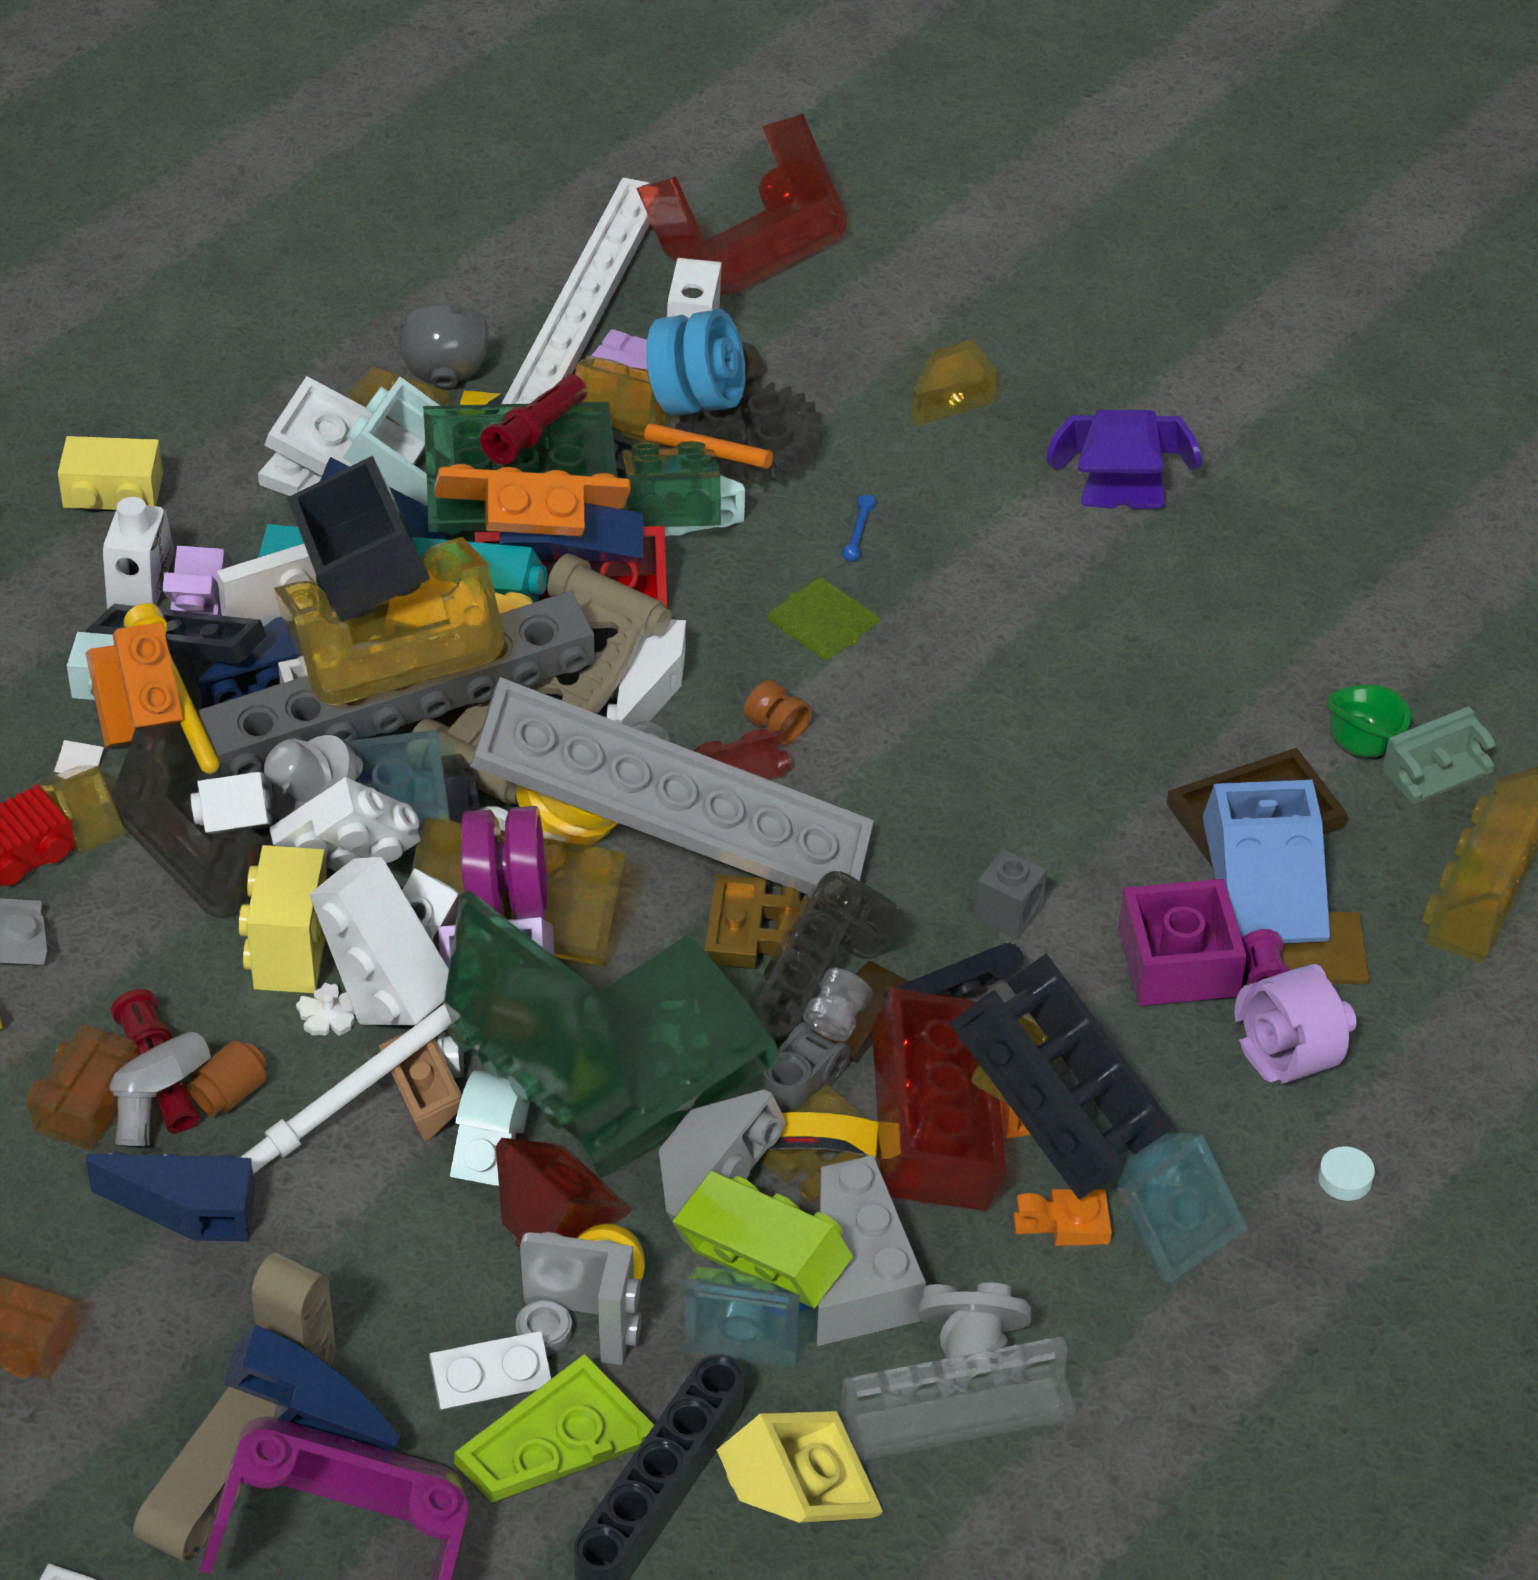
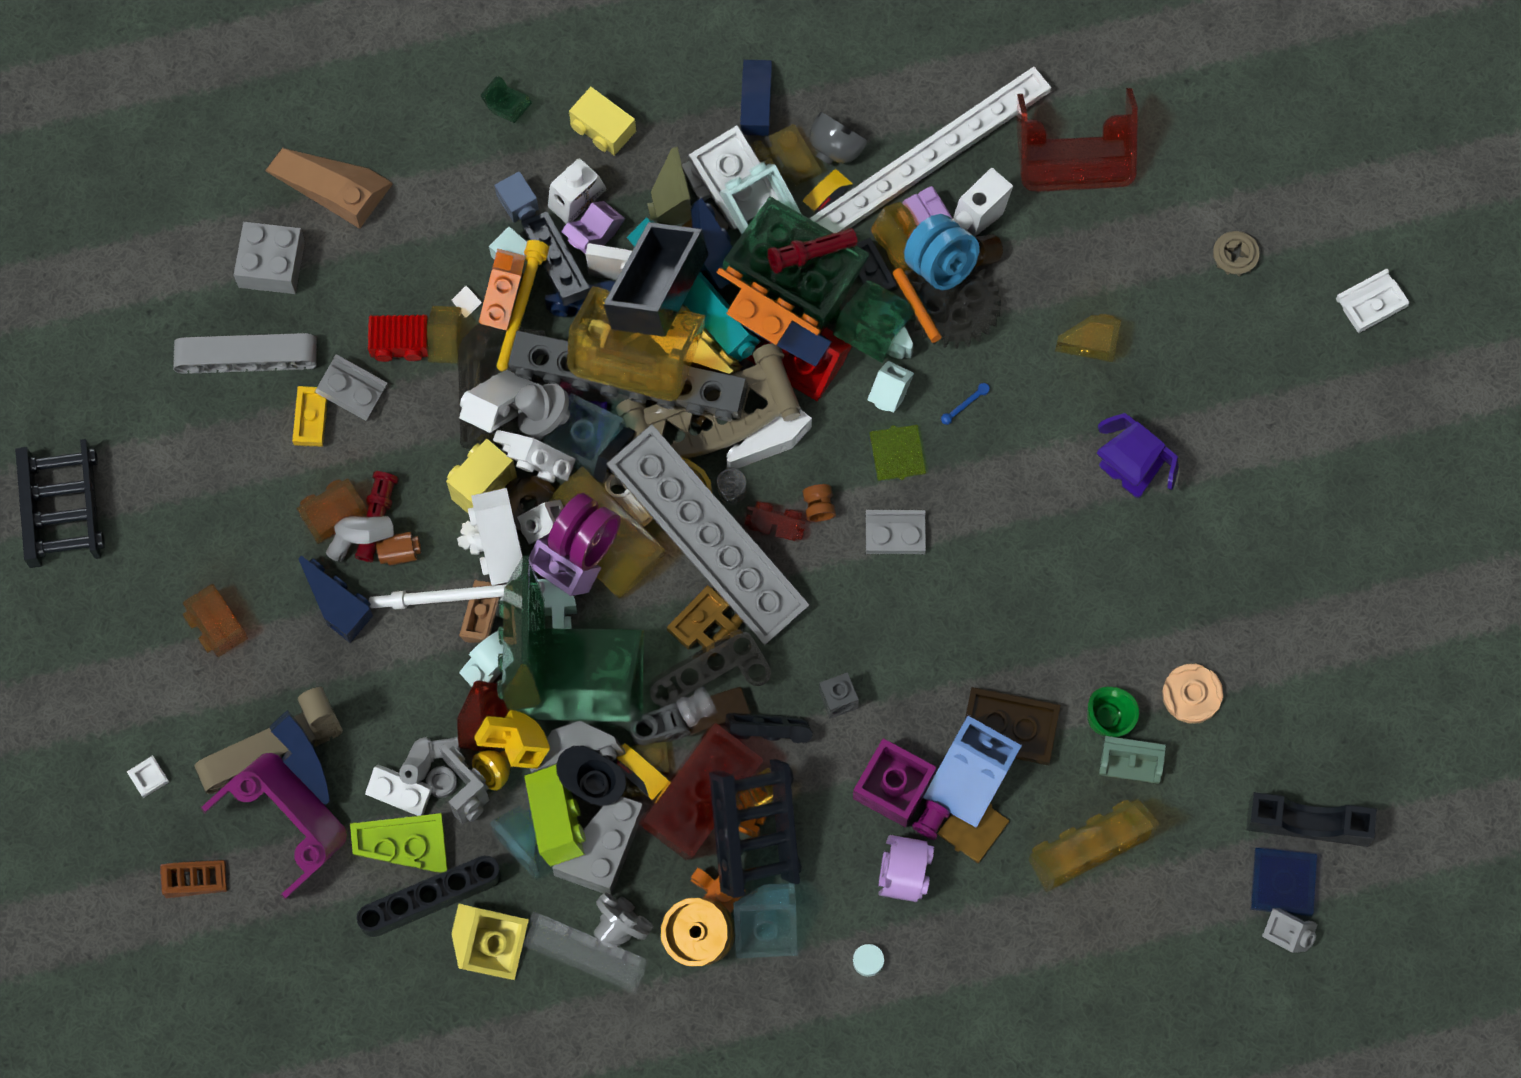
camera: 40 degrees right, 25 degrees up
(56, 607) = (516, 197): none -> sand blue brick
(272, 475) = (670, 193): none -> olive slope
(293, 355) = (756, 97): none -> dark blue slope
(490, 1297) = (420, 758): none -> light grey arm
(624, 1172) = (518, 735): none -> yellow brick
(754, 545) = (890, 387): none -> light aqua brick
(774, 1158) = (590, 775): none -> black piece
(903, 695) = (895, 532): none -> light grey plate
(1047, 229) = (1230, 241): none -> dark tan gear
(1097, 1263) = (716, 929): none -> wheel
(1231, 199) = (1372, 301): none -> white plate
(1431, 670) = (1185, 699): none -> light nougat tile

